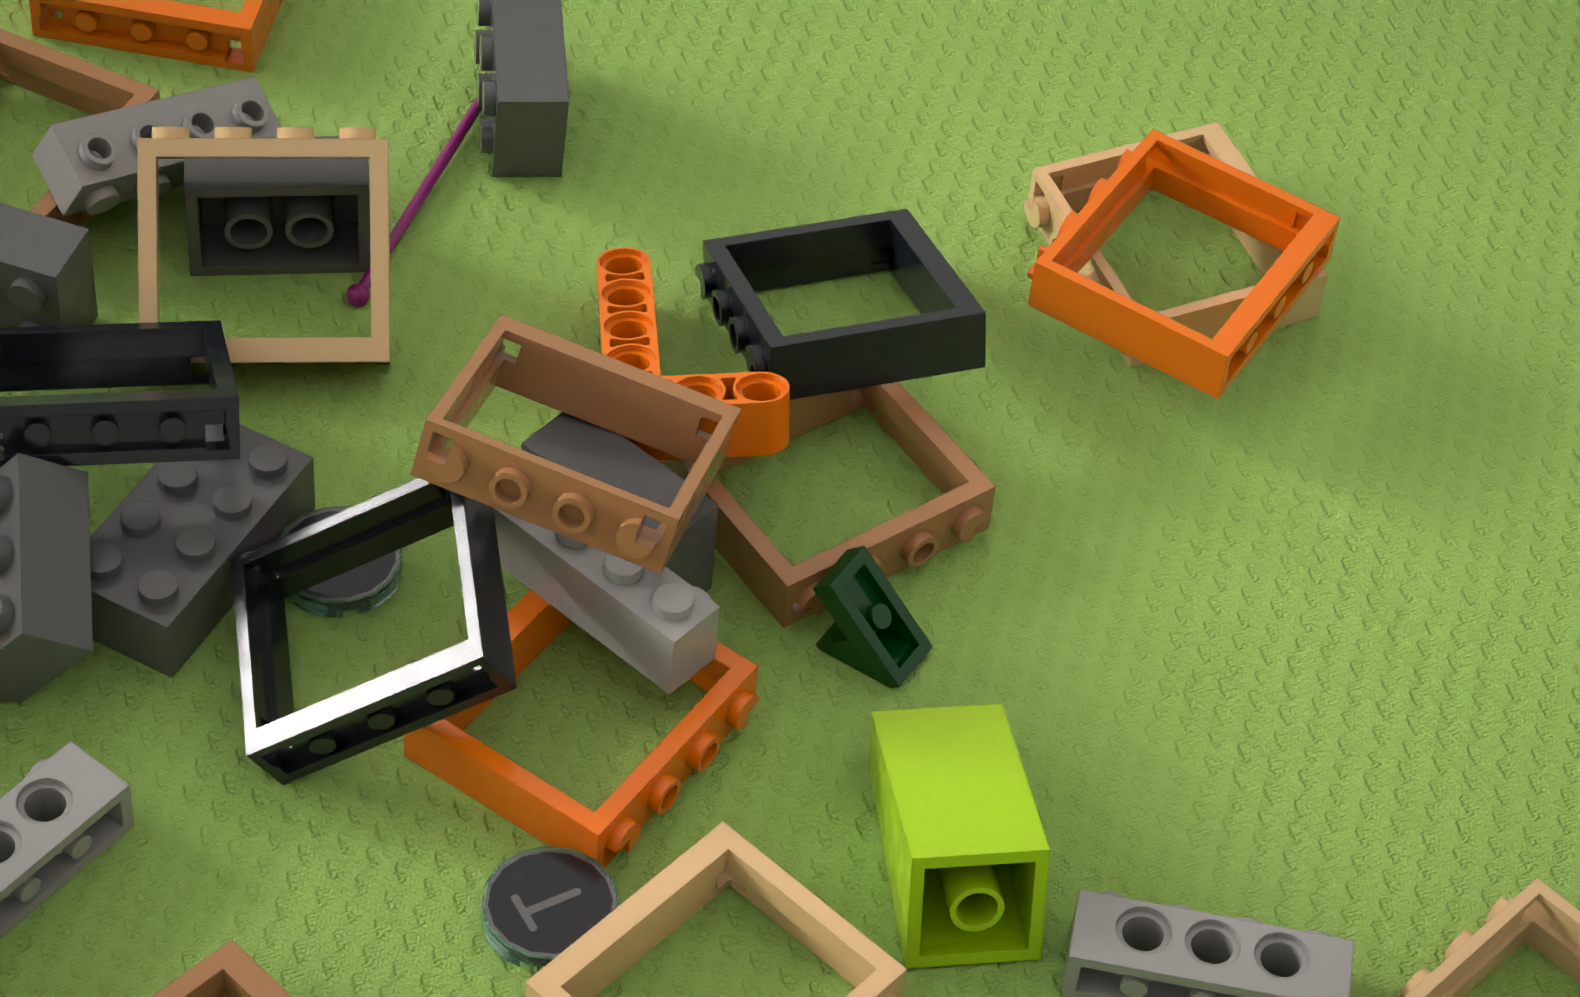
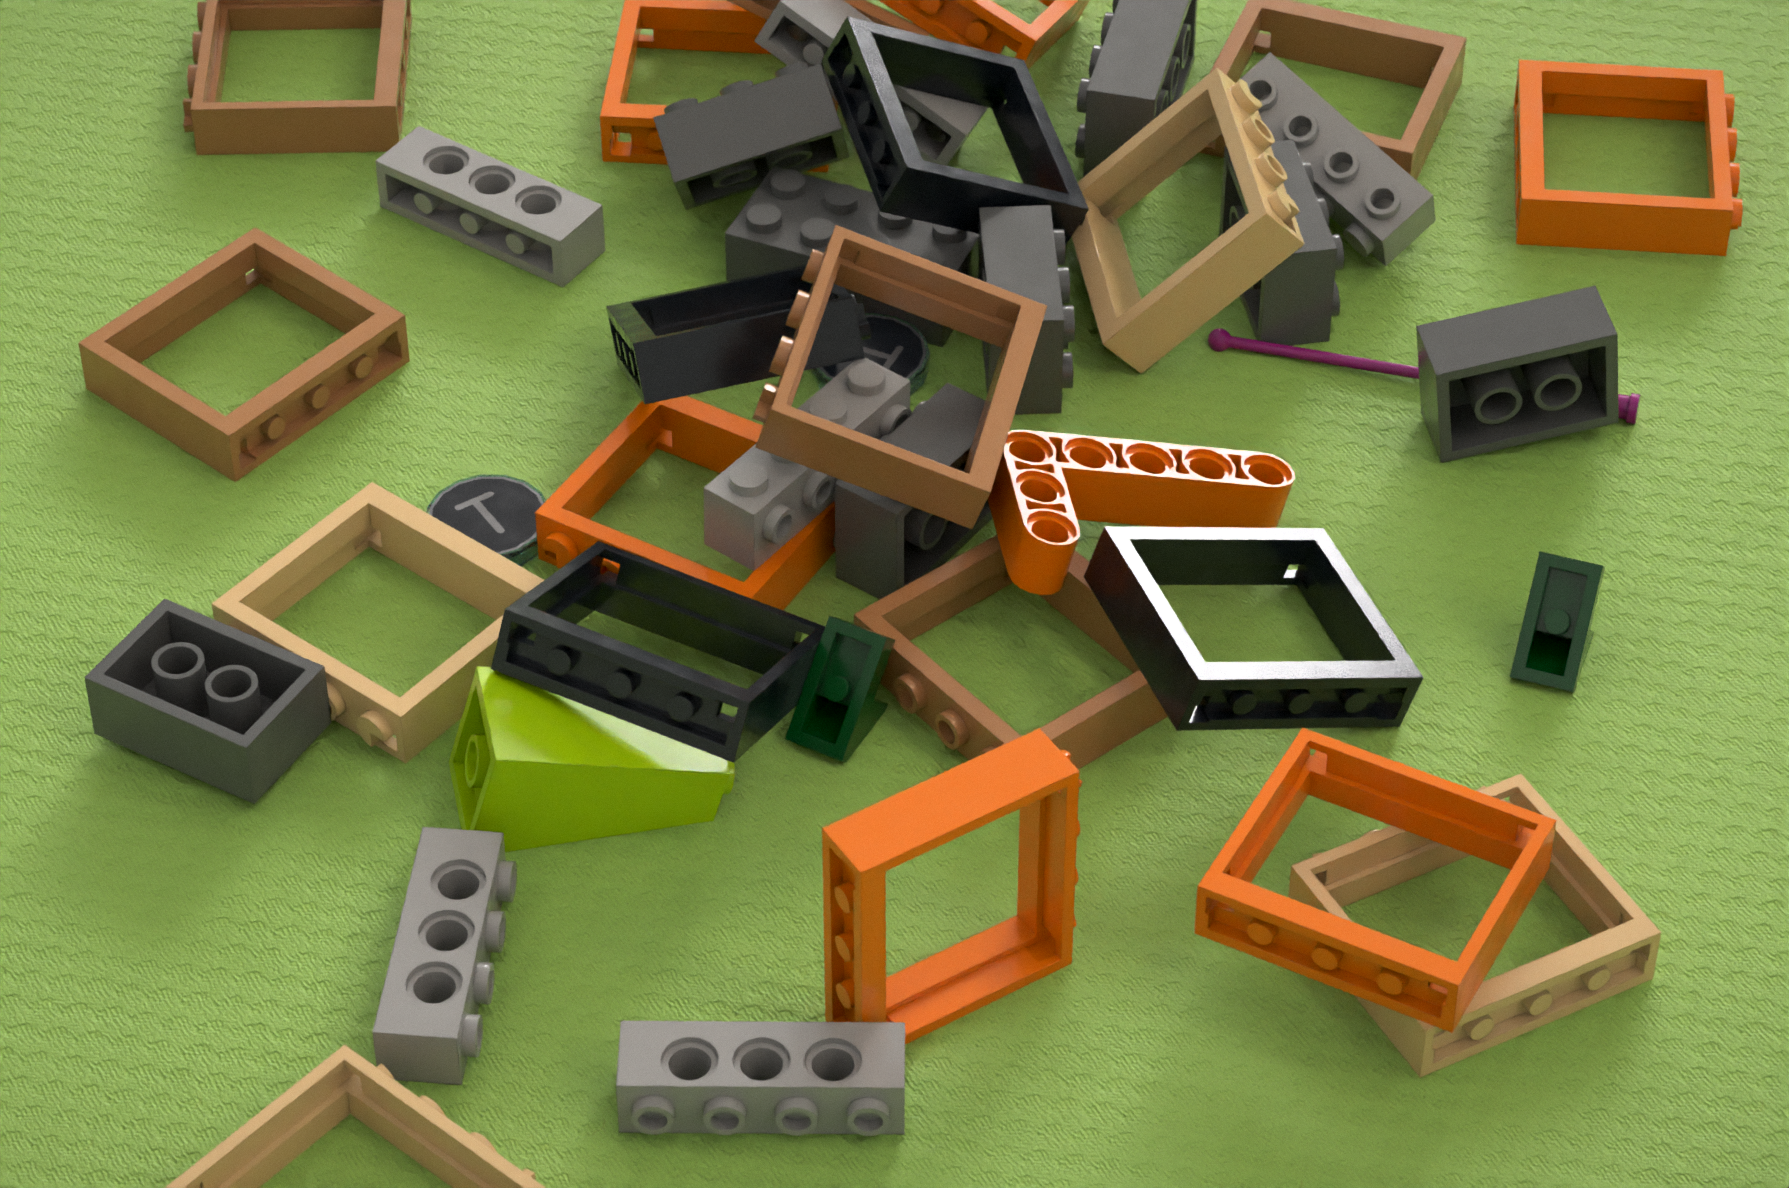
camera: 90 degrees right, 5 degrees down
(341, 400) = (1022, 256): none -> dark grey brick
(828, 128) = (1557, 622): none -> dark green slope
(989, 677) = (549, 650): none -> black window
(1268, 639) = (977, 971): none -> orange window
(1363, 733) = (761, 1077): none -> light grey brick

